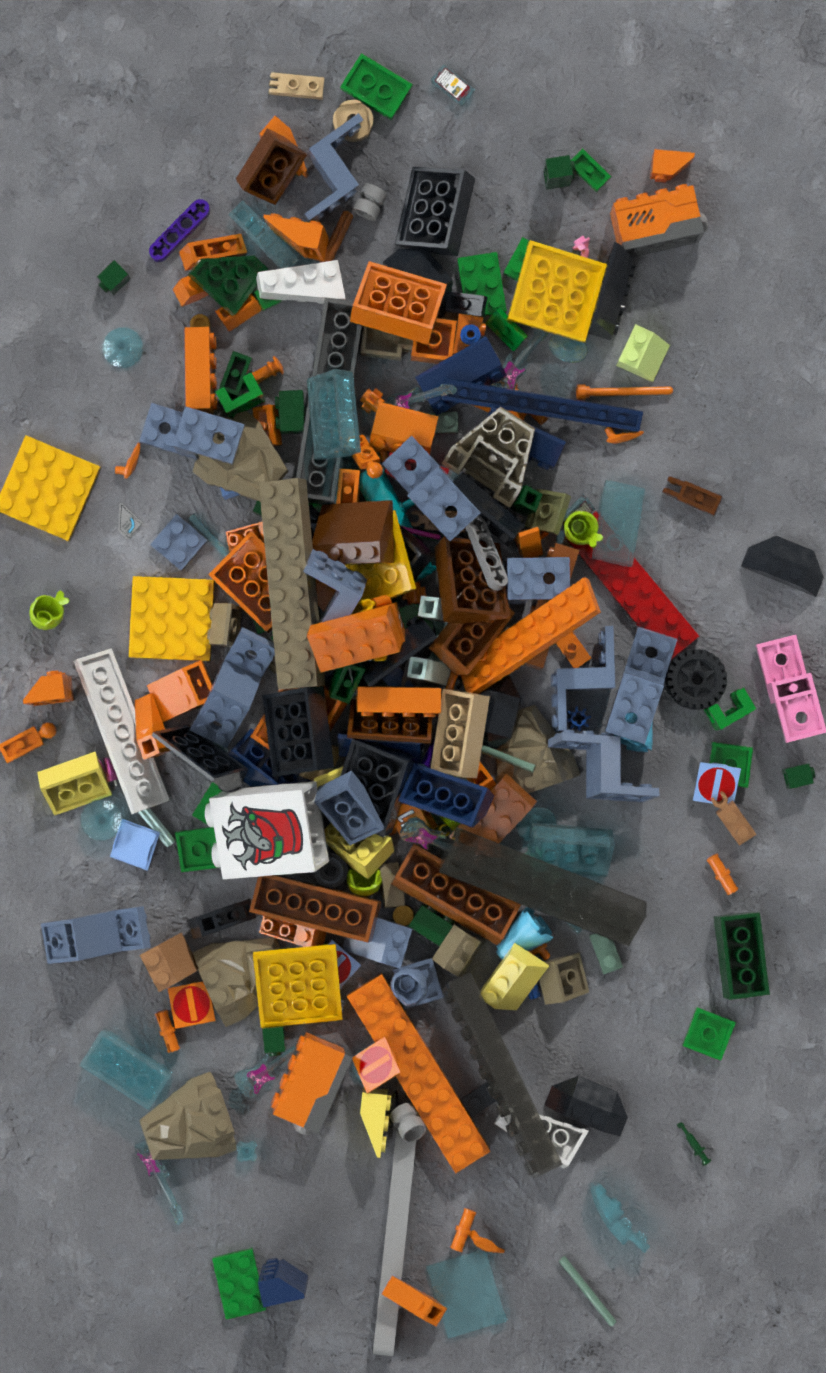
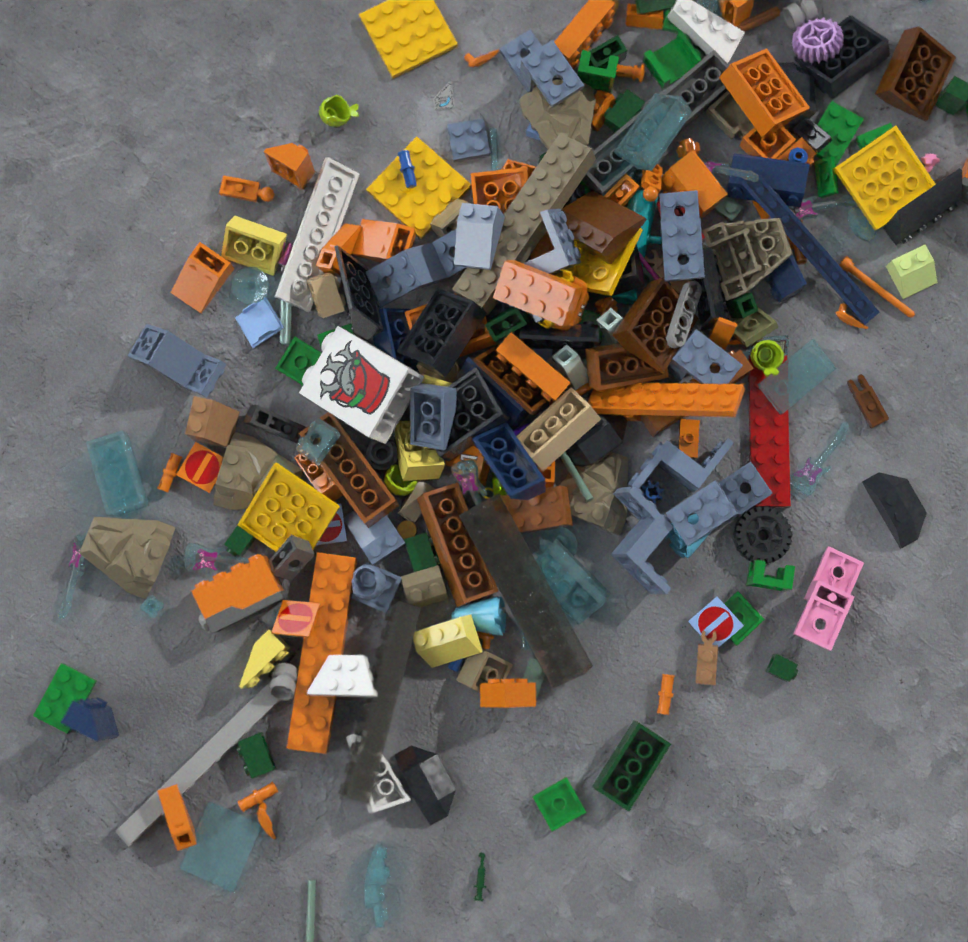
camera: 45 degrees right, 5 degrees down
(55, 848) = (201, 277): none -> orange slope
(150, 613) = (407, 169): none -> blue axle
(174, 778) = (326, 295): none -> tan brick
(264, 629) = (477, 235): none -> slope
(278, 896) = (317, 453): none -> clear light blue brick
(295, 331) = (672, 60): none -> green panel
(330, 1018) = (291, 557): none -> dark grey brick
(399, 227) = (817, 40): none -> lavender gear
(434, 1198) = (256, 755): none -> dark green brick
(456, 1079) = (344, 677): none -> white wing
(509, 176) = (915, 73): none -> reddish brown slope
(597, 981) = (508, 693): none -> orange brick
(693, 600) = (806, 478): none -> clear light blue piece

